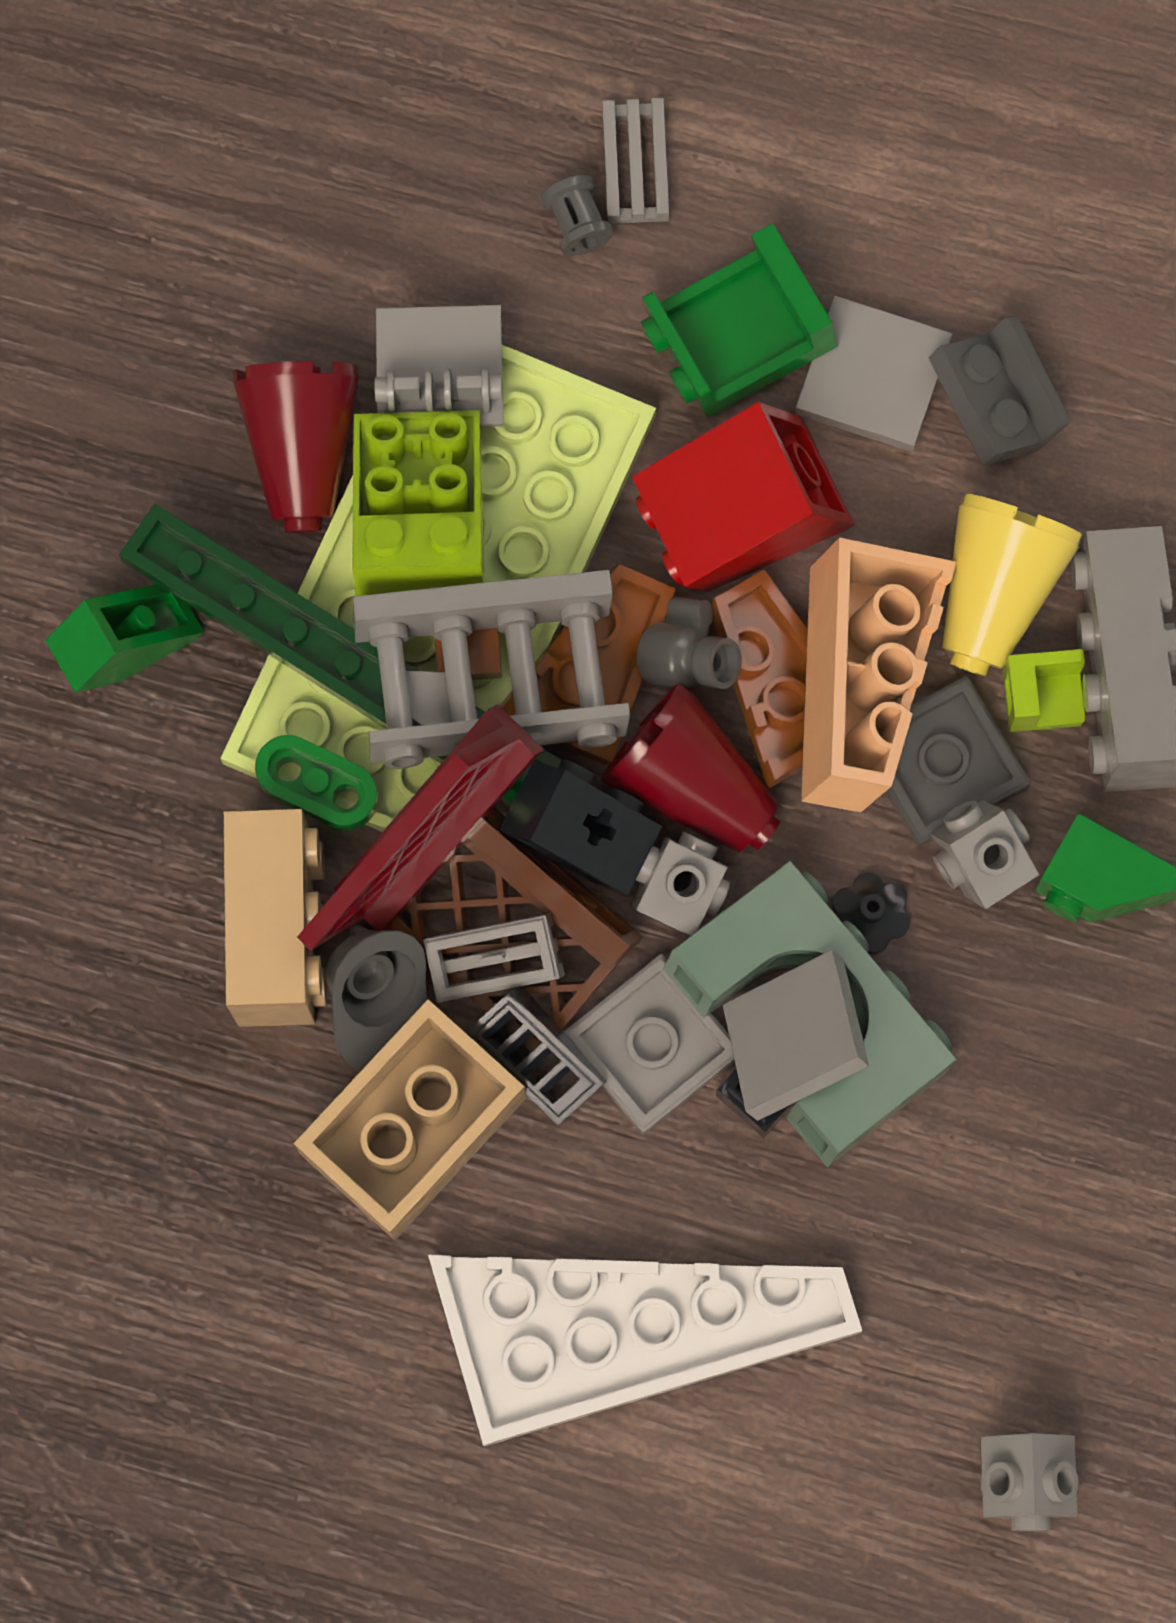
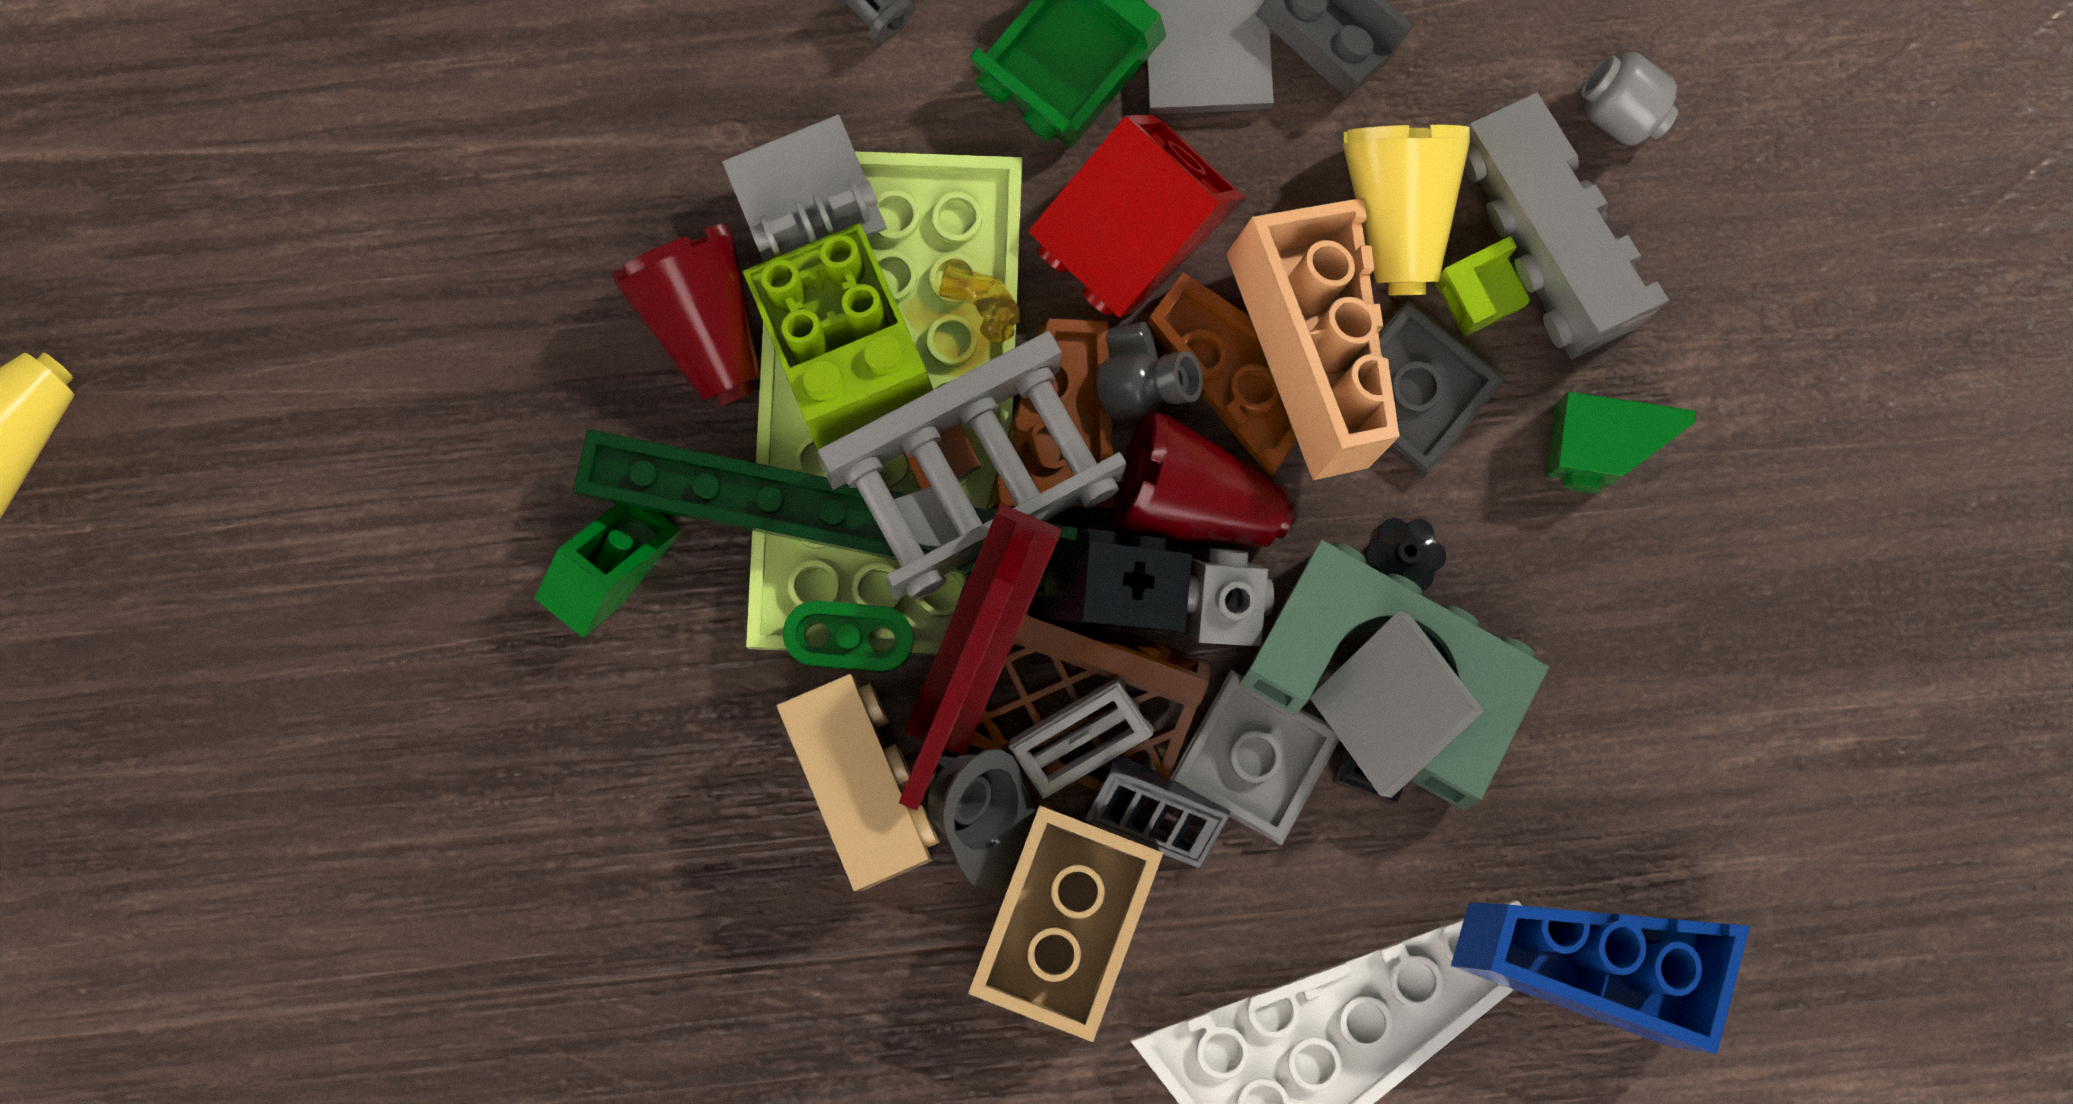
camera: 25 degrees left, 5 degrees up
(571, 523) = (988, 296): none -> clear yellow arm
(906, 1359) = (1625, 970): none -> blue wedge
(983, 852) = (1493, 461): light grey brick -> none
(1029, 1479) = (1771, 1032): light grey brick -> none

